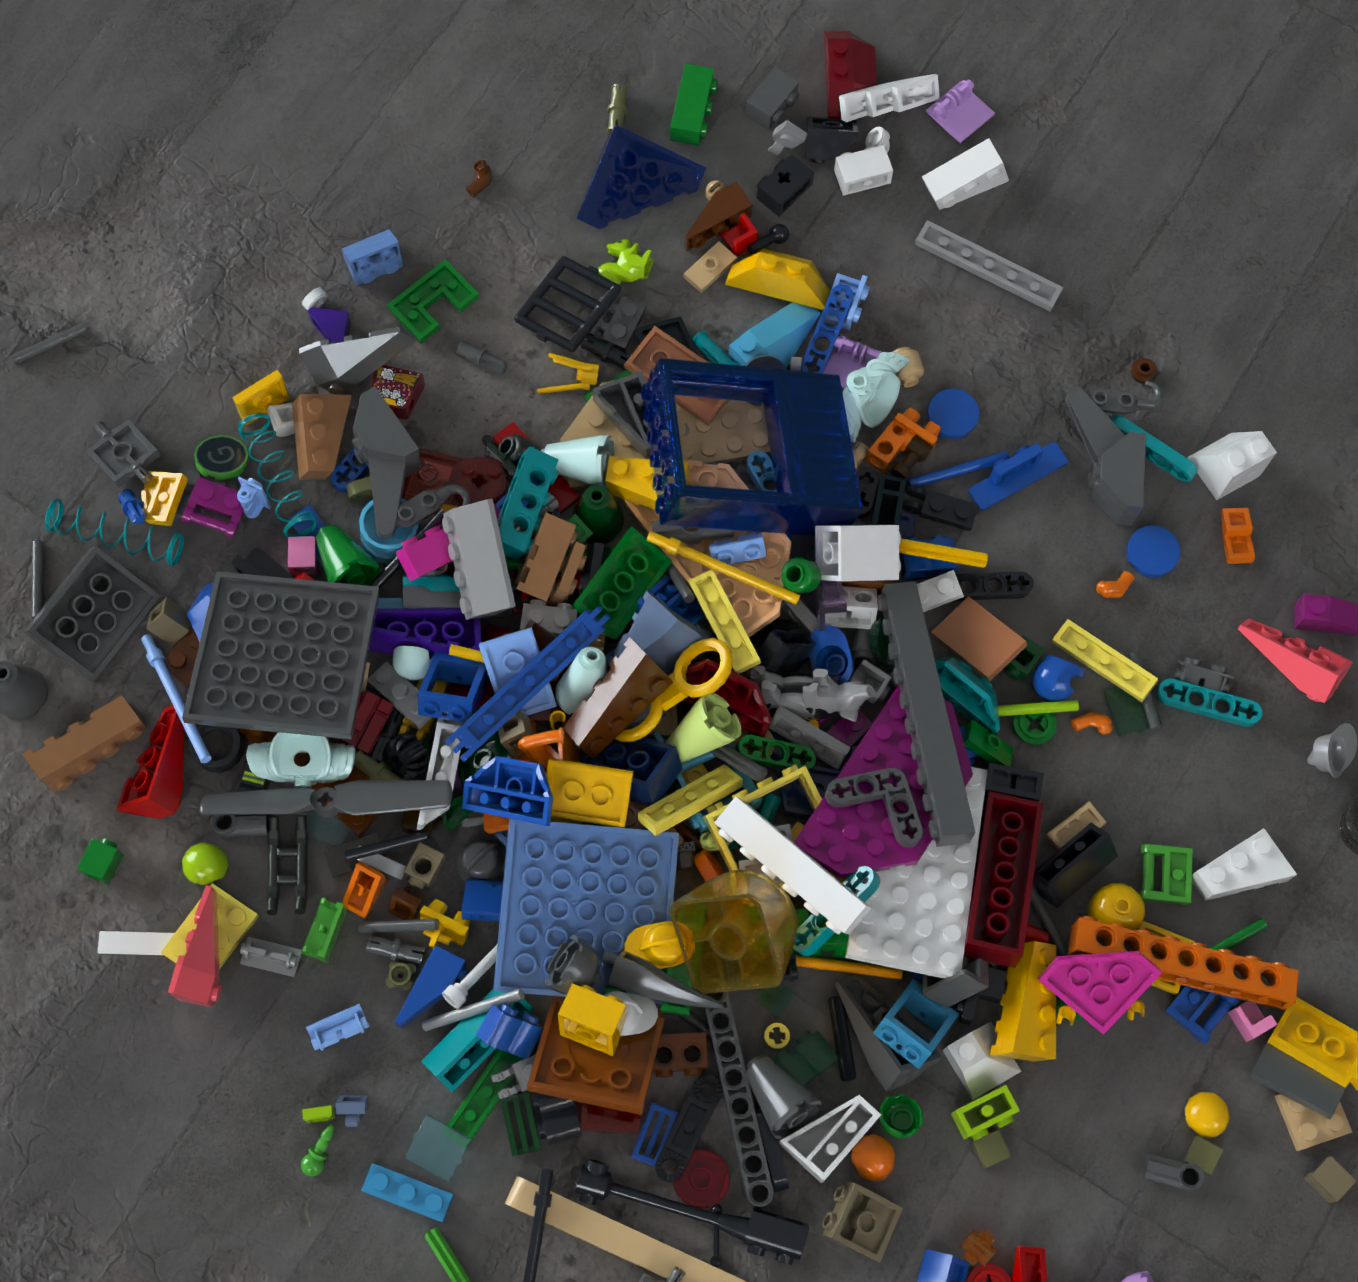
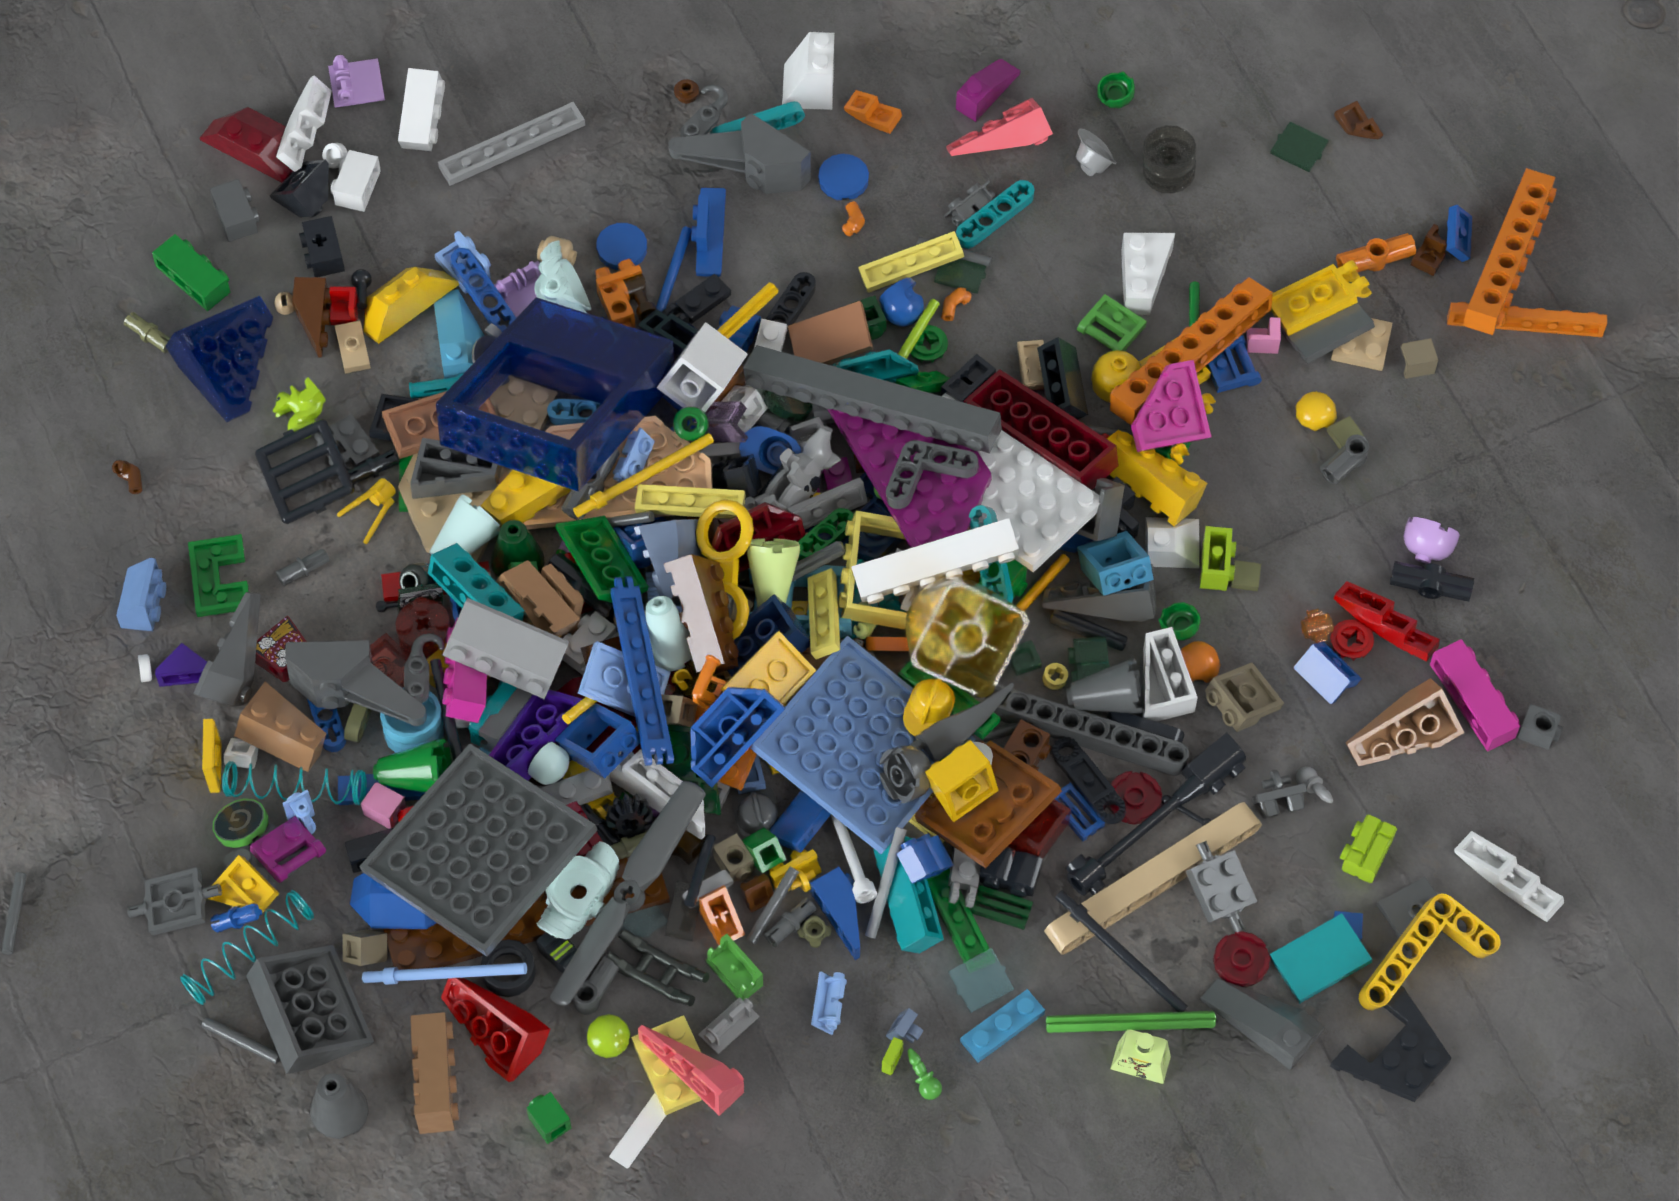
camera: 55 degrees left, 10 degrees down
(444, 886) = (764, 849): none -> green brick
(786, 136) = (281, 215): light grey plate -> none

